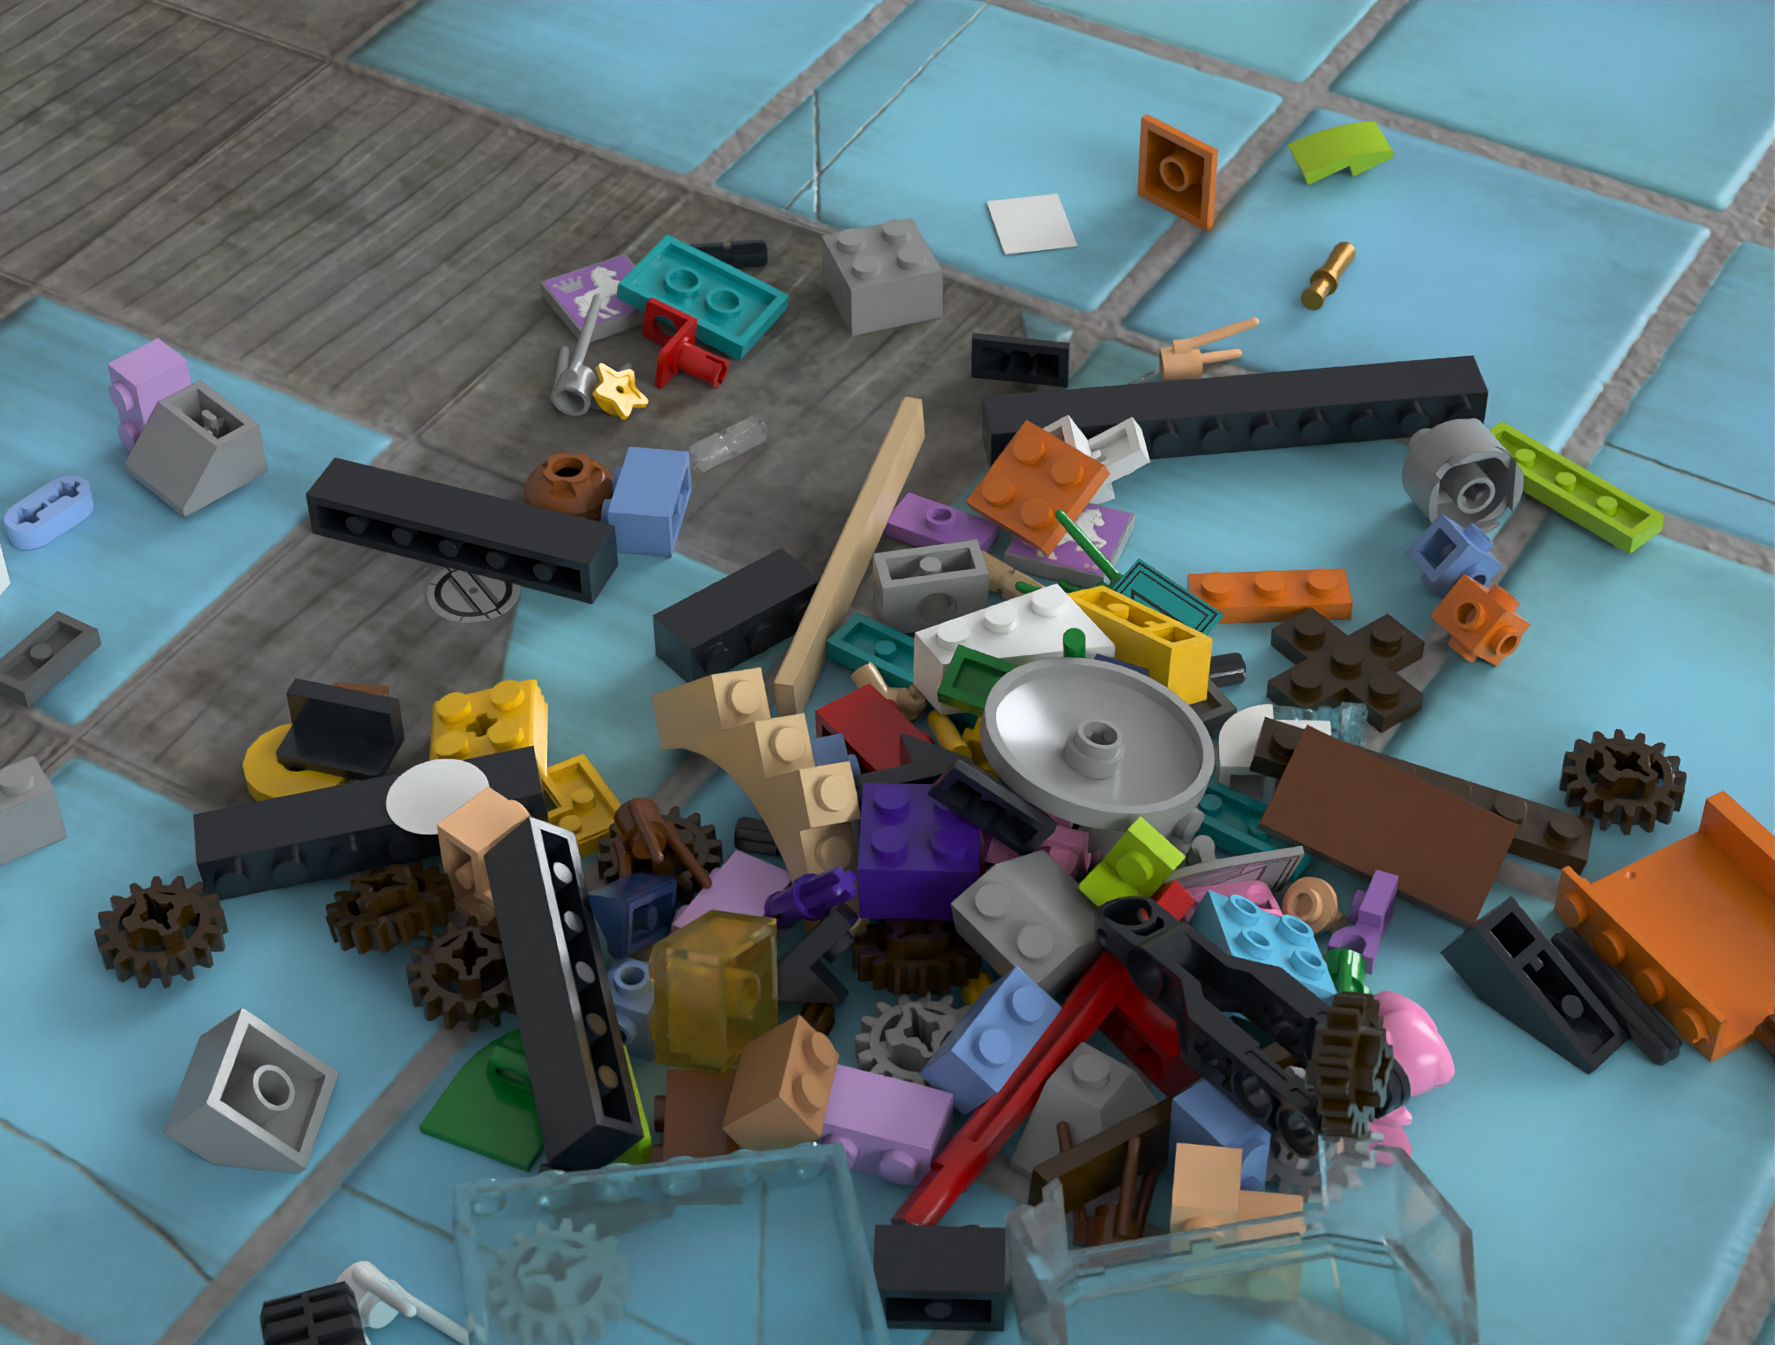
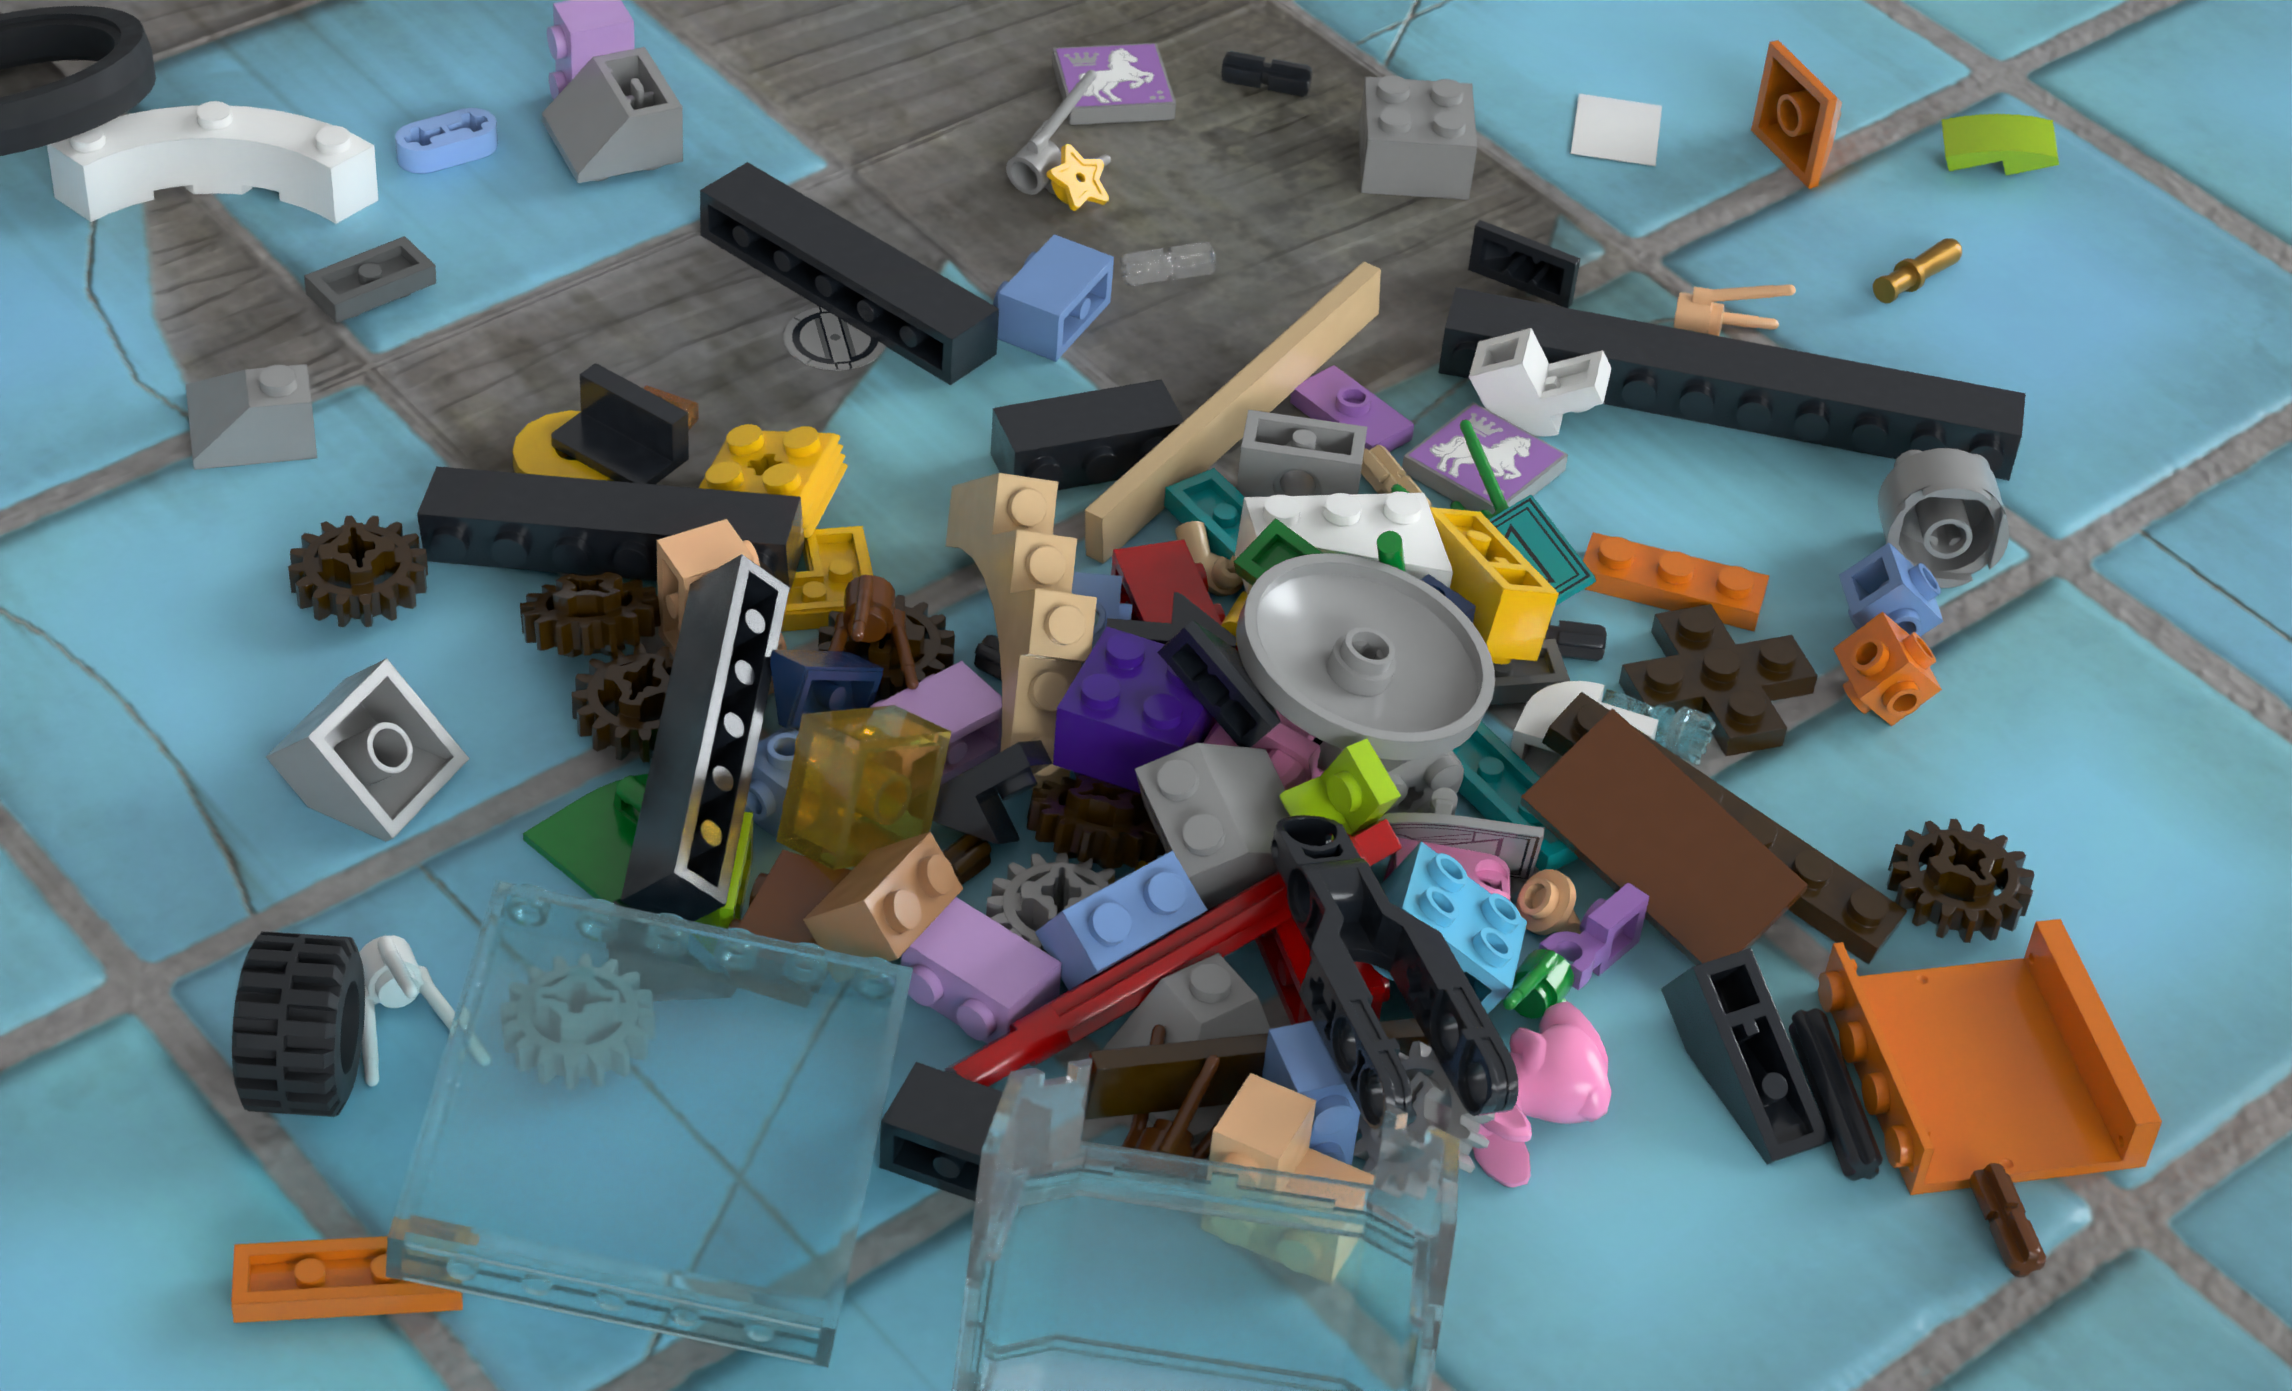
camera: 15 degrees right, 0 degrees up
(432, 793) = (676, 509): white sticker -> none
(574, 495) = (979, 269): dark orange piece -> none
(679, 350) = (1164, 154): red bracket -> none
(728, 303) = (1213, 107): teal plate -> none
(811, 897) = (1004, 725): dark purple axle -> none
(1034, 481) = (1461, 381): orange plate -> none
(1350, 1064) = (1443, 1039): dark brown gear -> none
(1580, 493) = (2073, 568): lime plate -> none

